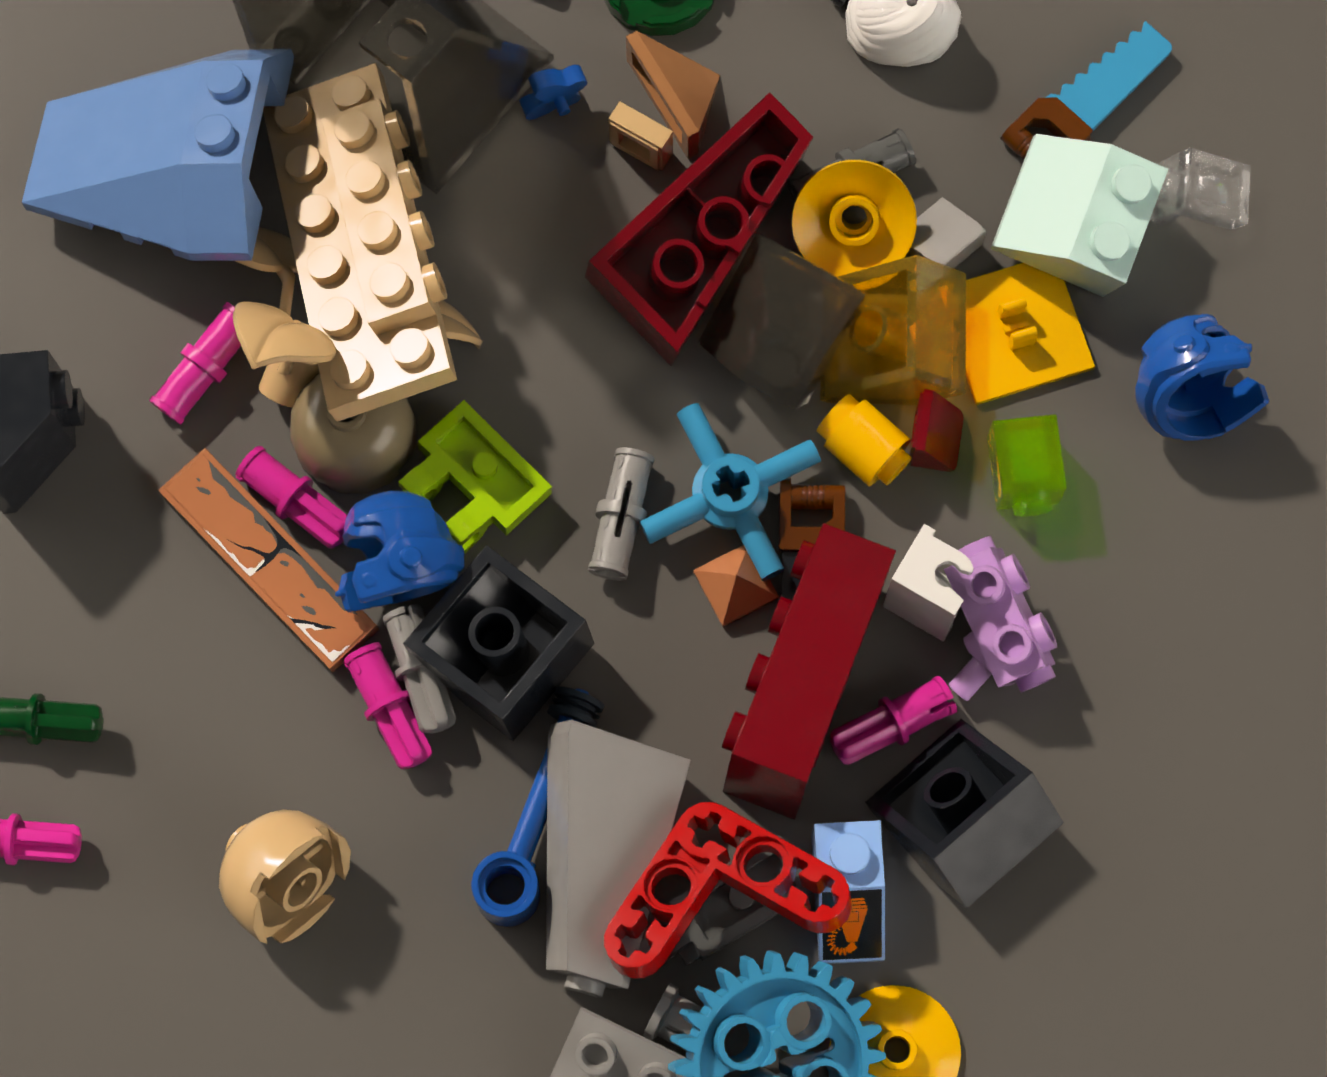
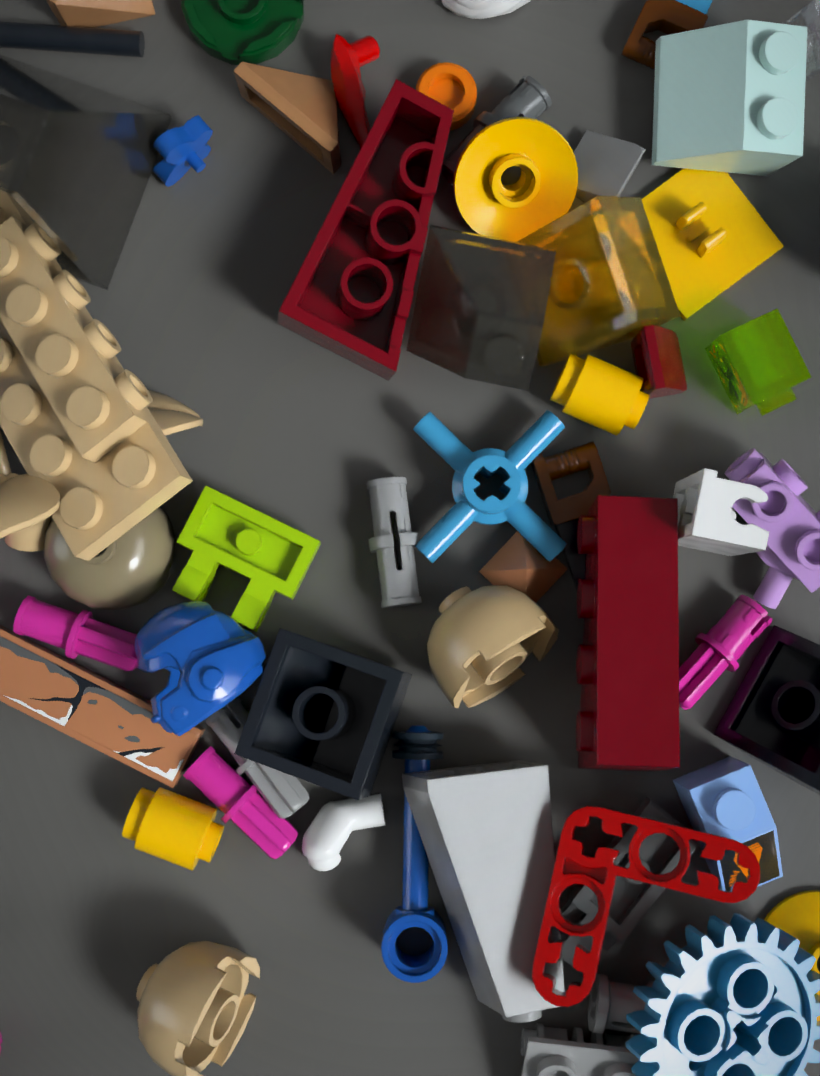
camera: 25 degrees left, 10 degrees up
(317, 703) = (173, 827): none -> yellow brick
(468, 758) = (334, 825): none -> white arm
(640, 136) = (281, 166): tan tile -> none
(674, 631) = (484, 641): none -> tan cylinder
(731, 75) = (347, 82): none -> red bar
(825, 119) = (451, 87): none -> orange tile

